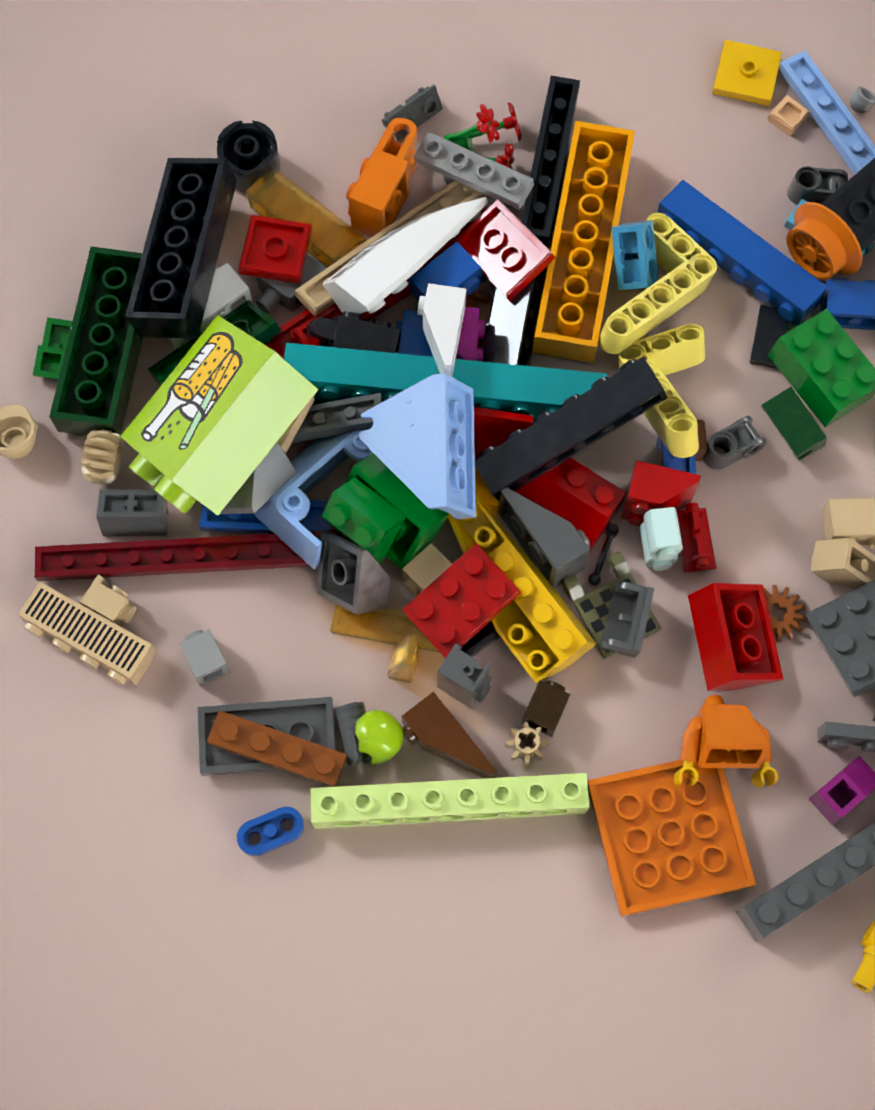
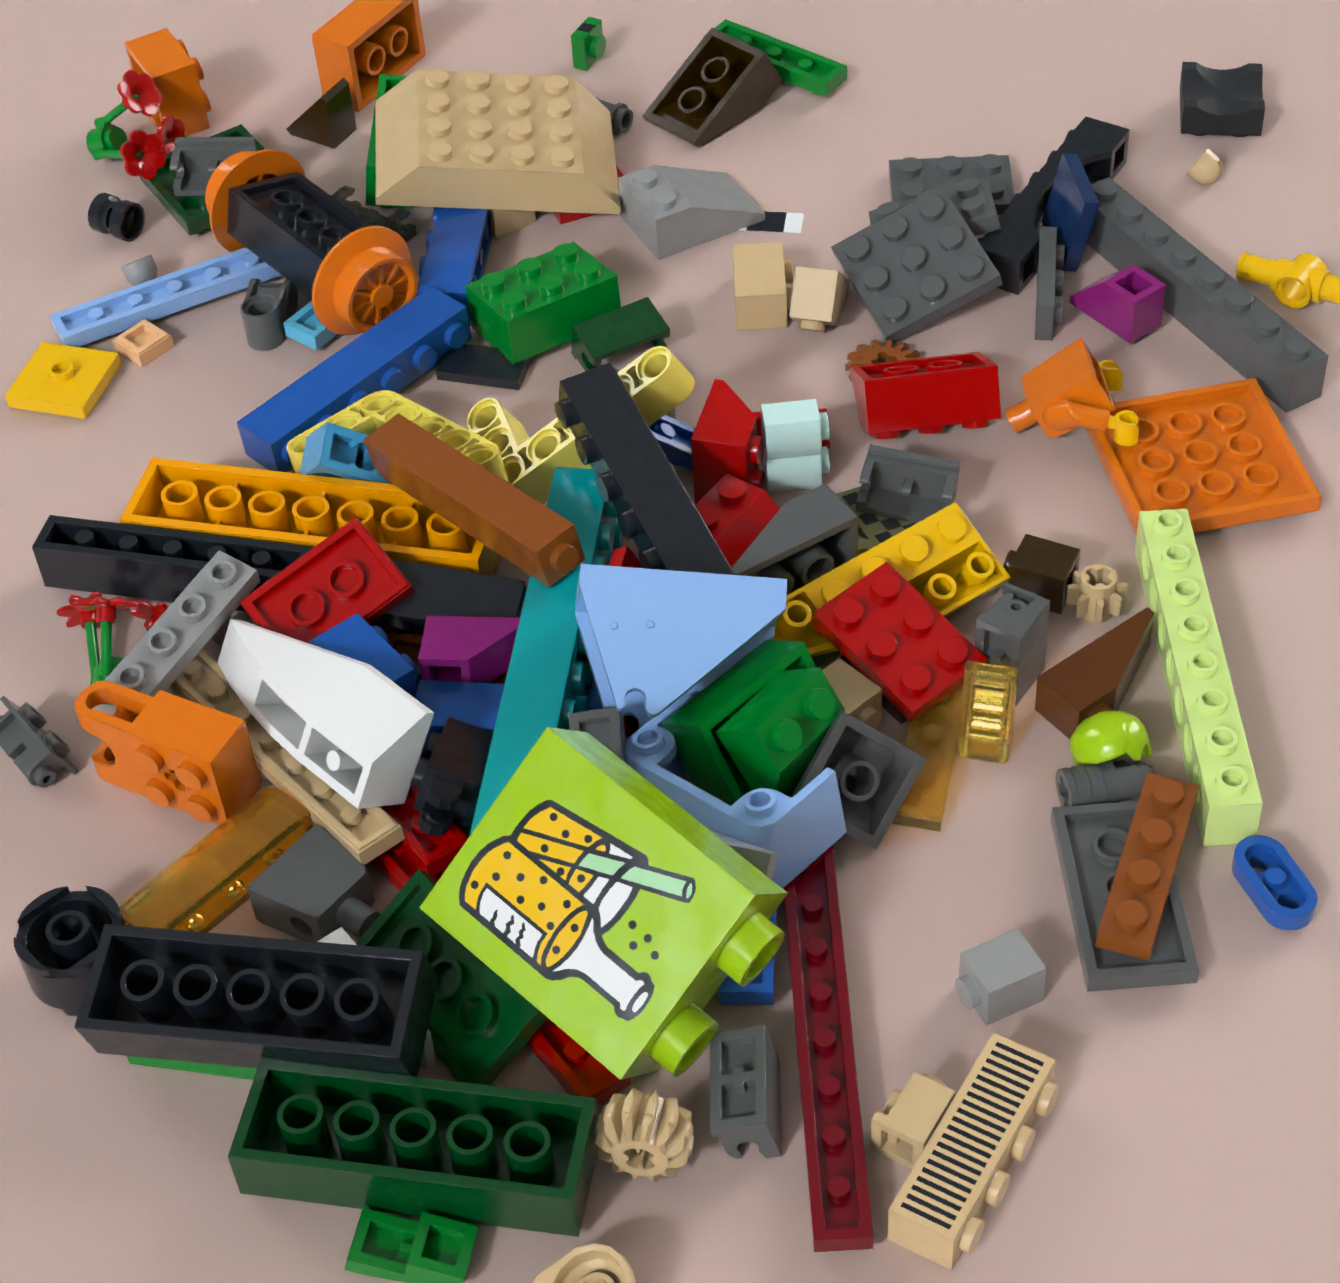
camera: 85 degrees left, 25 degrees down
(275, 249) = (274, 887): red tile -> none
(442, 322) = (470, 629): white slope -> none
(567, 322) = (475, 500): none -> dark orange brick

